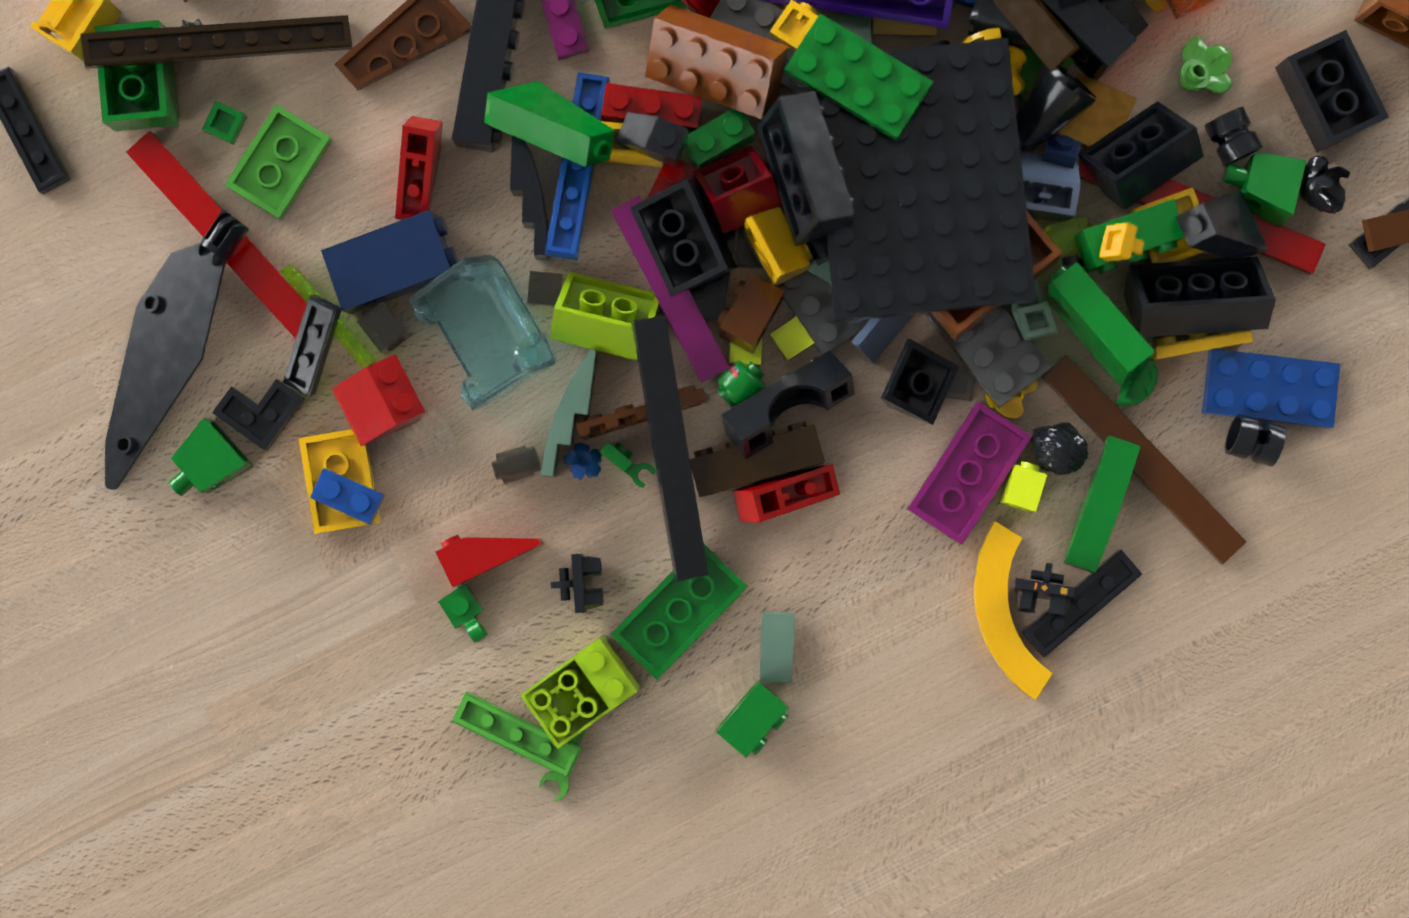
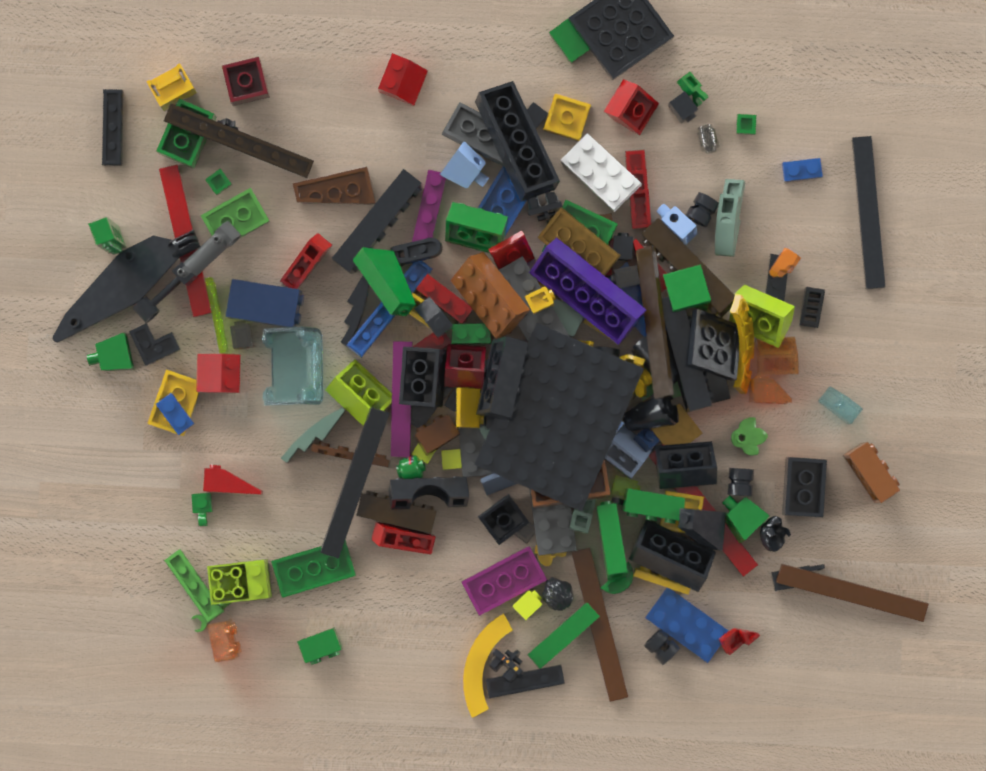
camera: 25 degrees right, 0 degrees up
(94, 283) = (107, 235): none -> green brick
(273, 197) = (187, 271): none -> dark grey piece
(312, 345) = (200, 325): black tile -> none
(516, 464) = (271, 445): clear smoke brick -> none
(544, 288) = (337, 361): clear smoke tile -> none
(573, 59) = (417, 250): none -> black plate
(583, 461) = (307, 463): blue plant -> none
(583, 597) = (275, 518): black hips -> none
(606, 791) = (223, 640): none -> clear orange slope
(620, 457) = (327, 472): green plate -> none
(777, 646) = (353, 615): sand green slope -> none
(858, 77) = (555, 346): green plate -> none
(1120, 242) = (641, 506): yellow tile -> none
(1353, 369) = (737, 637): none -> red slope

